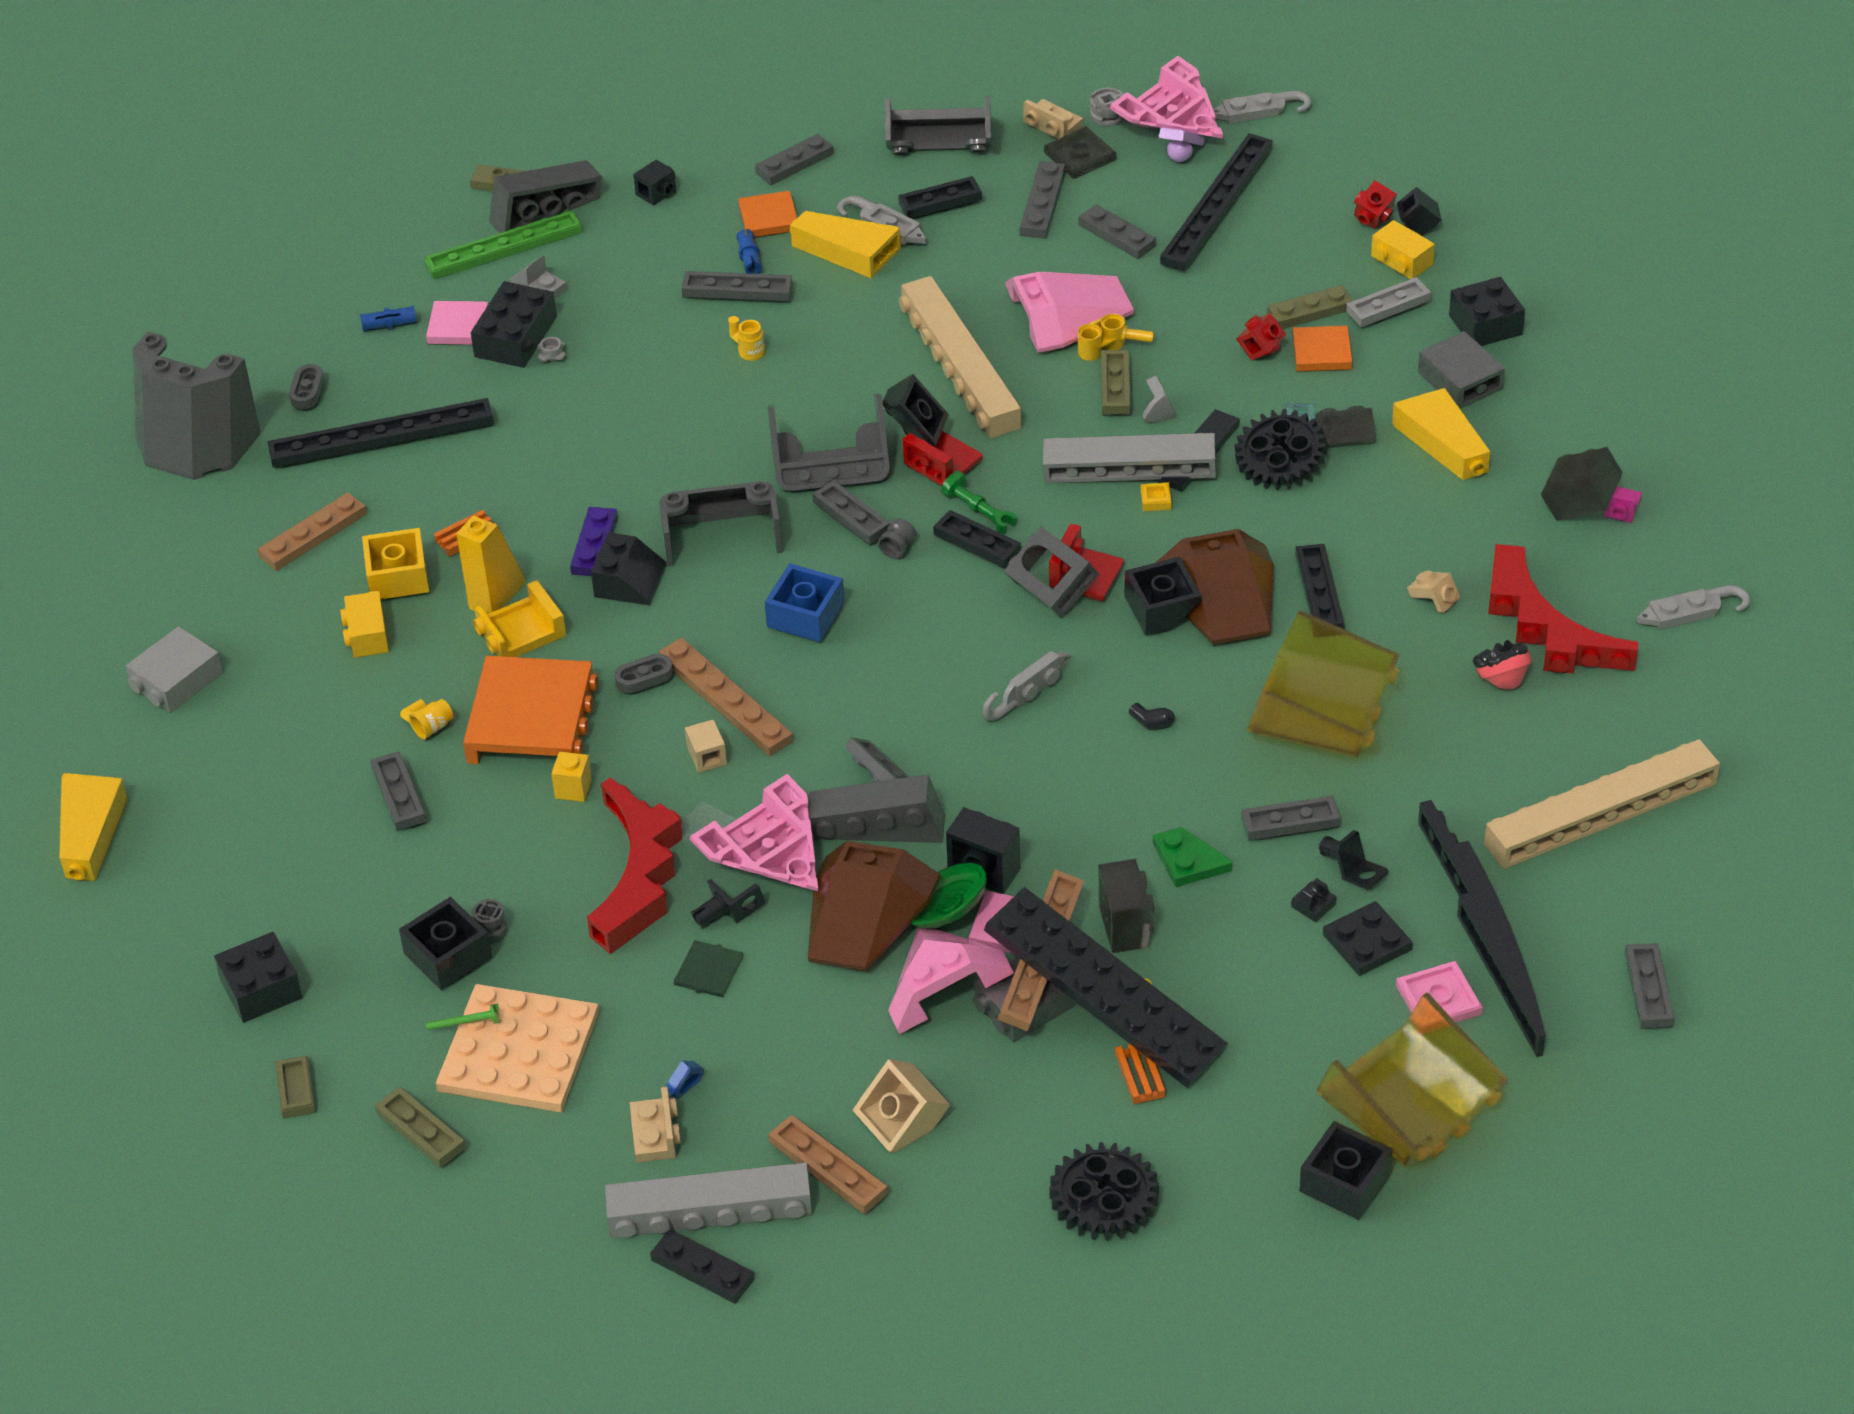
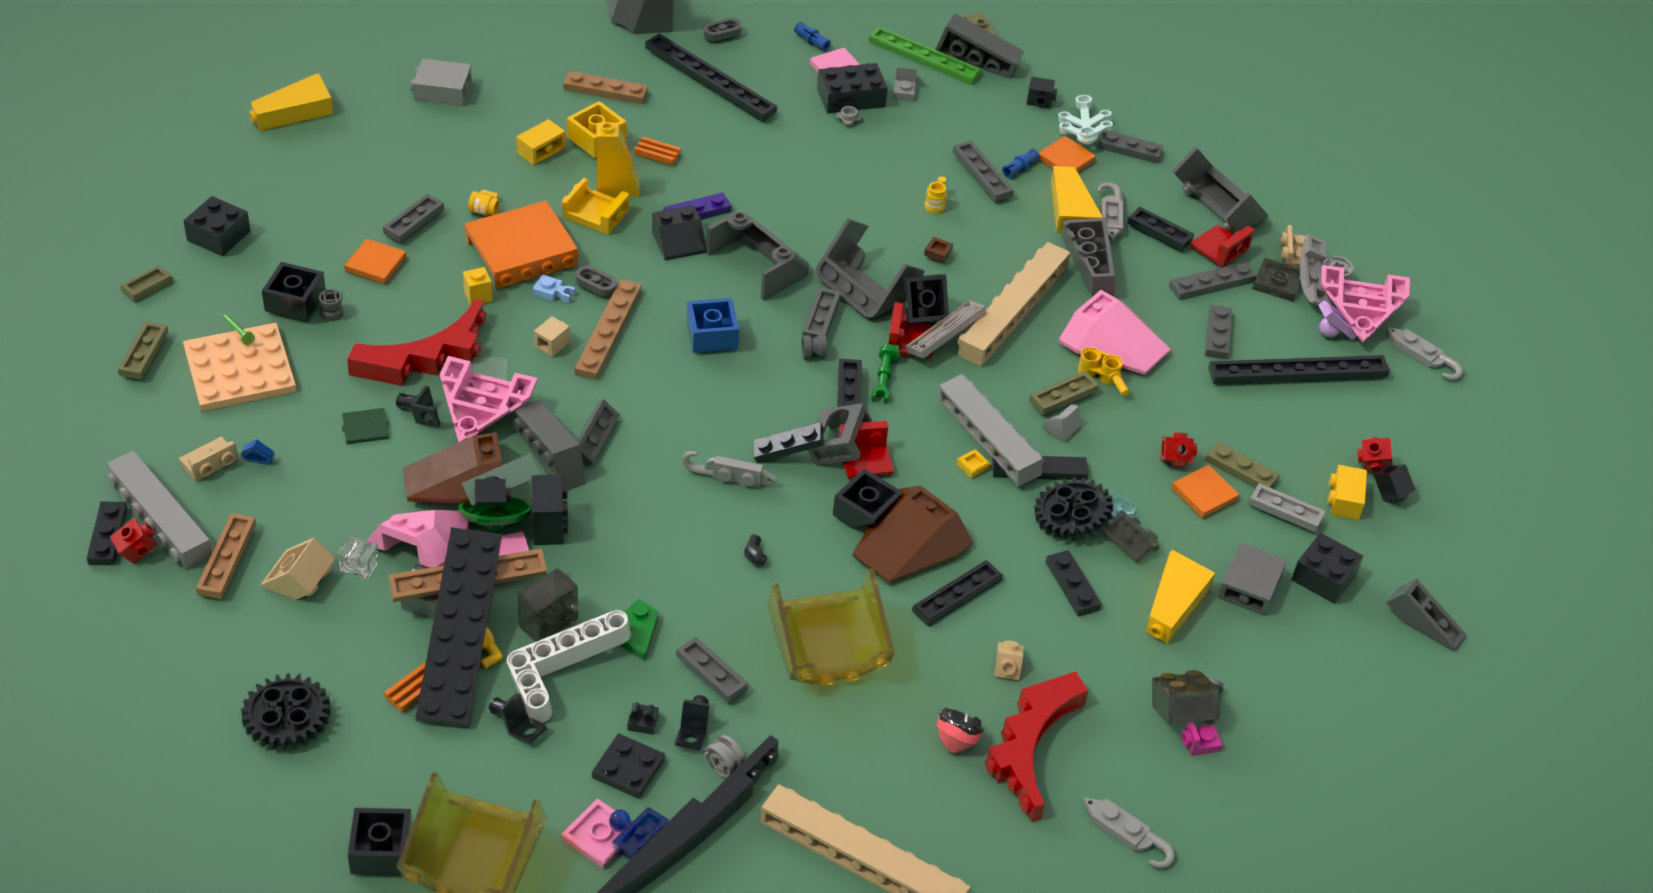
camera: 50 degrees right, 0 degrees up
(440, 855) = (375, 261): none -> orange tile
(618, 719) = (550, 288): none -> light blue plate
(752, 1247) = (134, 540): none -> red brick
(757, 179) = (1086, 133): none -> light aqua plant
(829, 376) = (938, 249): none -> reddish brown plate
(921, 1044) = (358, 557): none -> clear brick
(925, 864) = (515, 472): none -> sand green tile
(947, 878) = (491, 494): none -> black brick
(948, 260) = (1091, 252): none -> dark grey wedge
(964, 422) = (946, 329): none -> light grey tile
(1003, 166) = (1222, 245): none -> red bracket
(1030, 618) = (788, 442): none -> plate
(1077, 107) = (1312, 255): none -> light grey slope
(1190, 927) = (559, 652): none -> white beam
(1250, 1000) = (516, 718): none -> black bracket
(1368, 499) = (1073, 583): none -> black plate
(1417, 852) = (724, 755): none -> light grey wheel
(1469, 957) = (636, 833): none -> clear blue plate
(1585, 278) = (1421, 611): none -> dark grey slope

